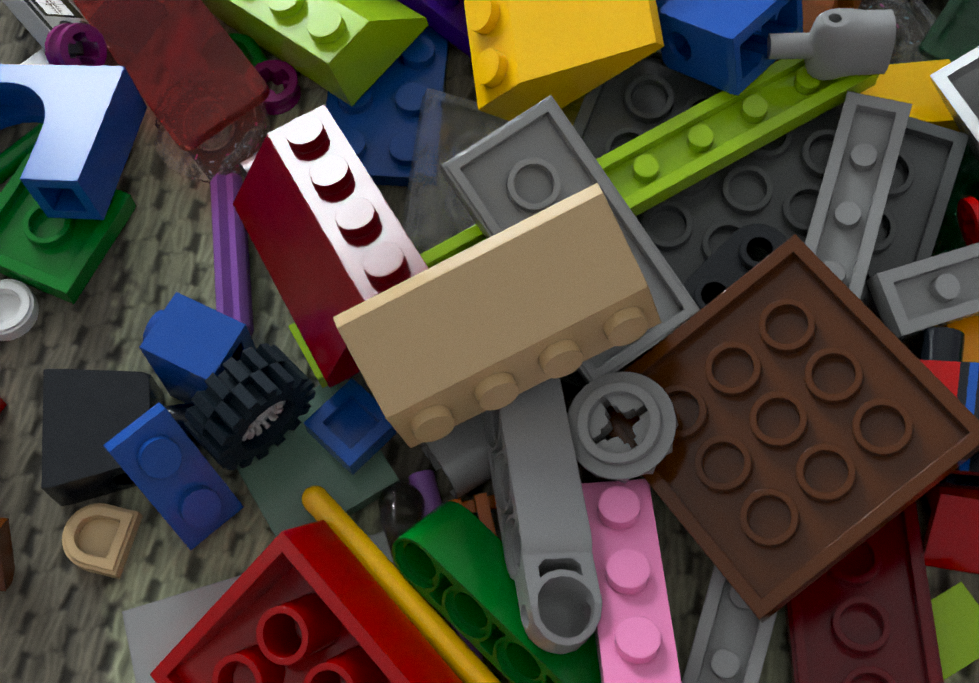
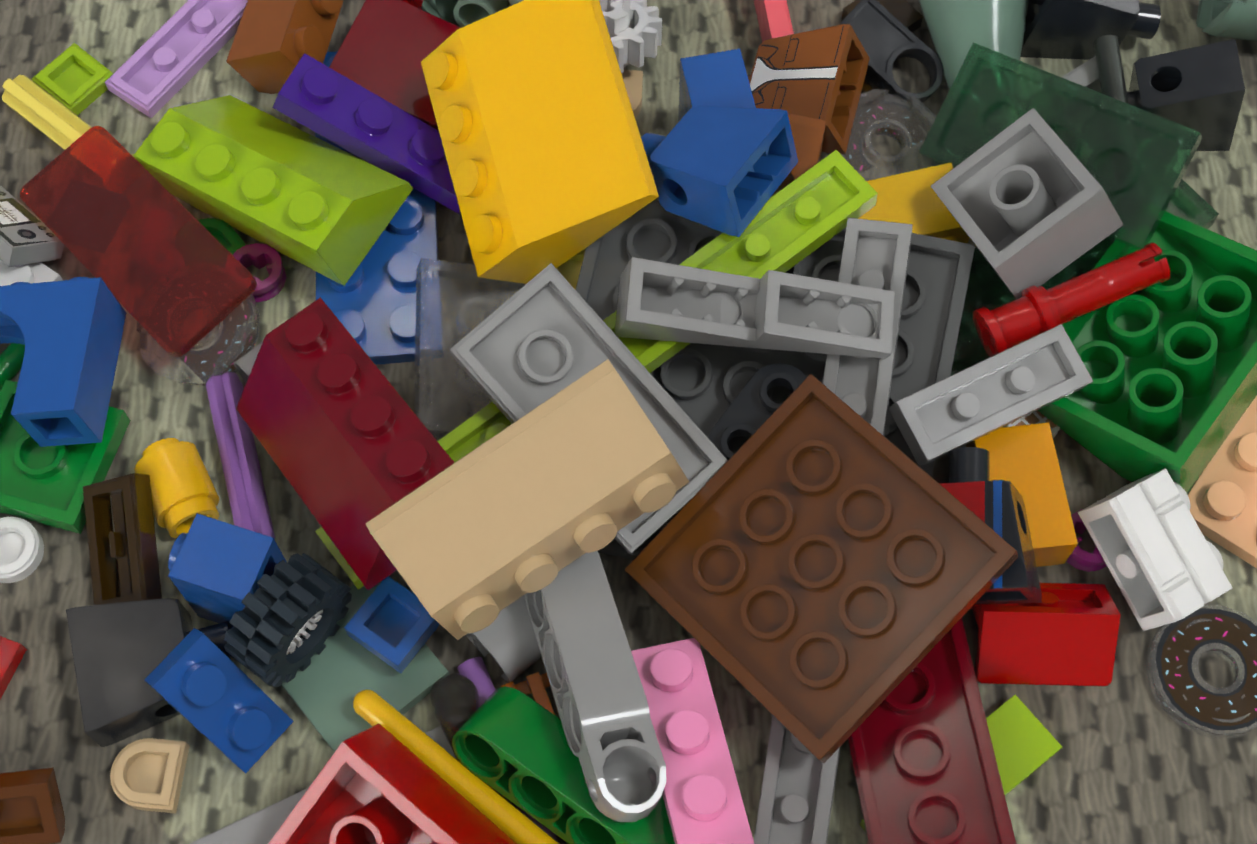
camera: 10 degrees left, 0 degrees up
(69, 33) = (25, 250): magenta bush -> none
(109, 312) = (131, 542): none -> dark brown tile
(167, 265) = (178, 484): none -> yellow brick
(632, 396) = (633, 588): light grey gear -> none
(760, 171) = (750, 312): none -> light grey slope
(840, 43) = (832, 173): light grey piece -> none

